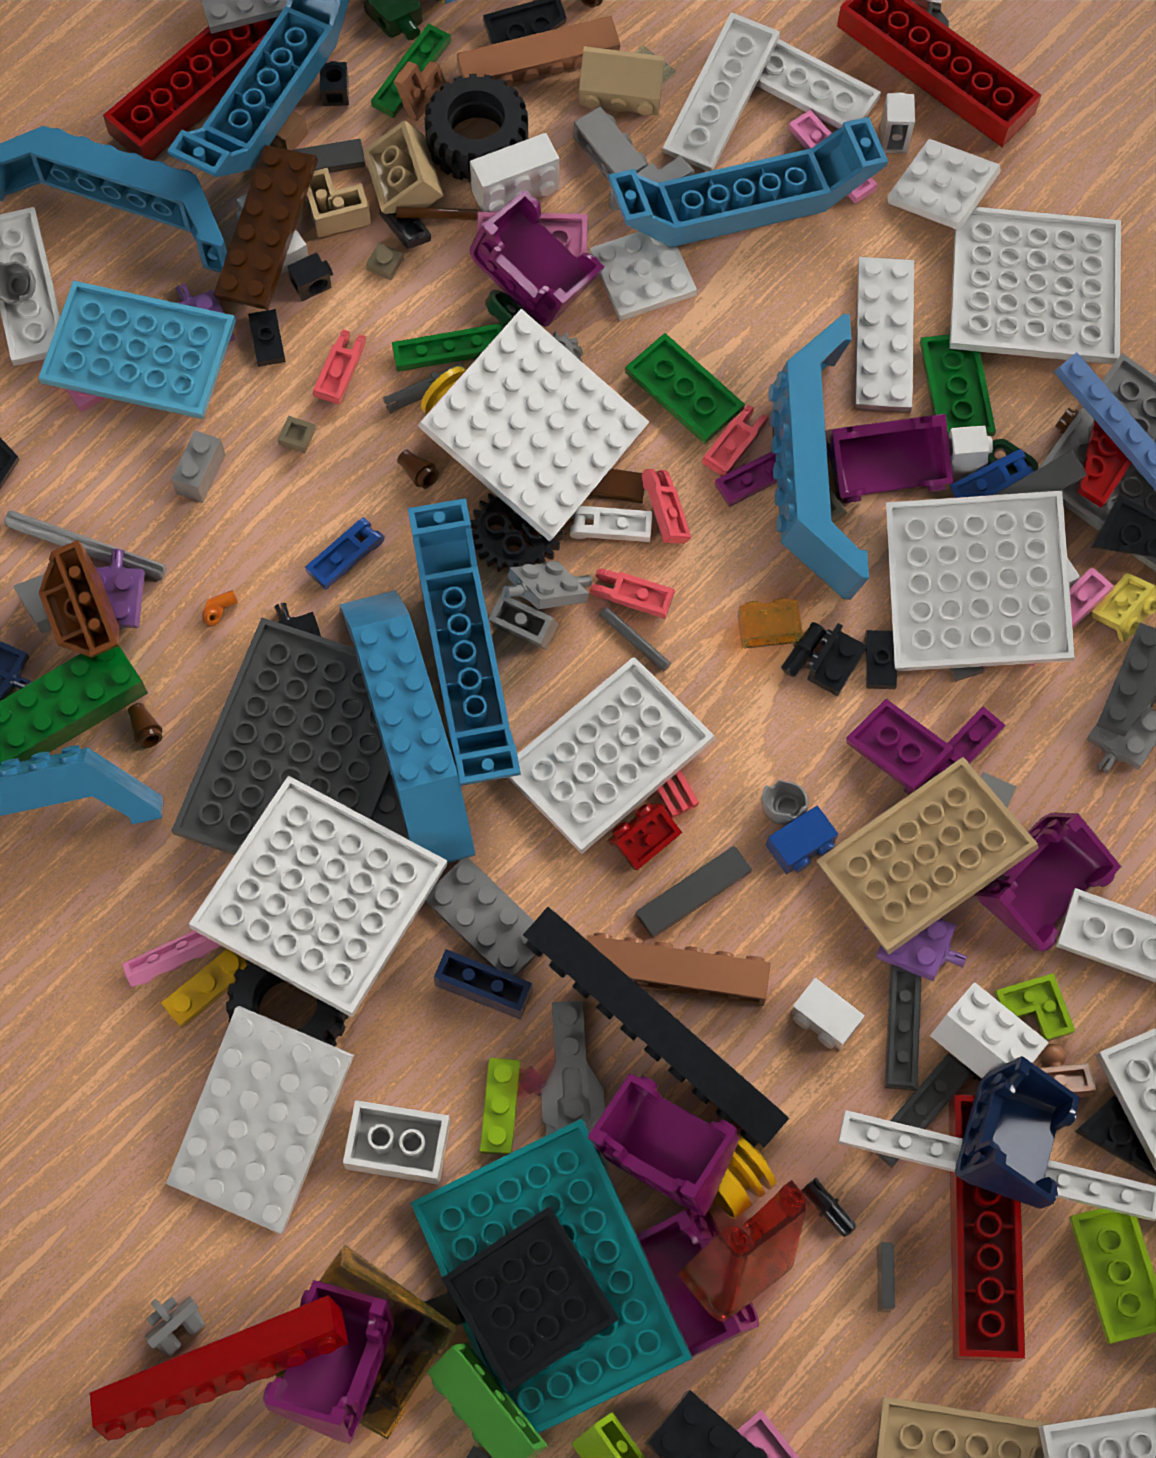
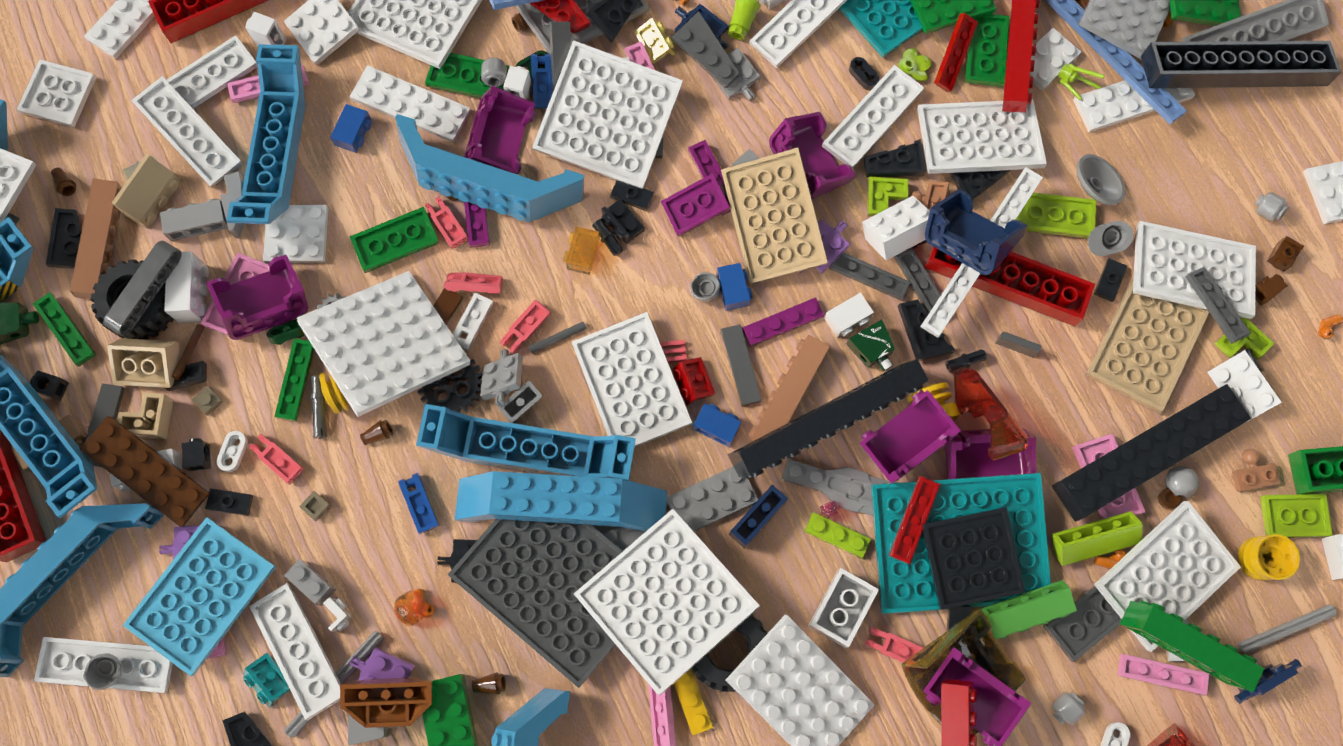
camera: 70 degrees left, 5 degrees up
(65, 467) = (266, 680): none -> teal bracket
(110, 483) = (297, 651): none -> white plate
(175, 512) = (338, 608): none -> white bracket
(206, 592) = (409, 608): none -> clear orange hair
(331, 313) = (233, 452): none -> white plate
(369, 1233) = (893, 646): none -> coral hinge
(418, 87) = (82, 328): nougat plate -> none
(488, 124) = (142, 288): none -> dark grey beam
(559, 1194) = (915, 515): none -> red tile
(592, 887) = (717, 424): none -> blue brick
(780, 928) = (783, 322): none -> magenta plate
(795, 1064) = (873, 346): none -> dark green torso
(815, 276) = (351, 128): none -> blue brick
(824, 1134) = (922, 342): none -> black wing
(972, 411) = (493, 72): none -> light grey head
(1052, 1393) = (1110, 280): none -> black plate
(1096, 1009) = (896, 163): none -> black wing
(1114, 1365) = (1110, 238): none -> light grey piece

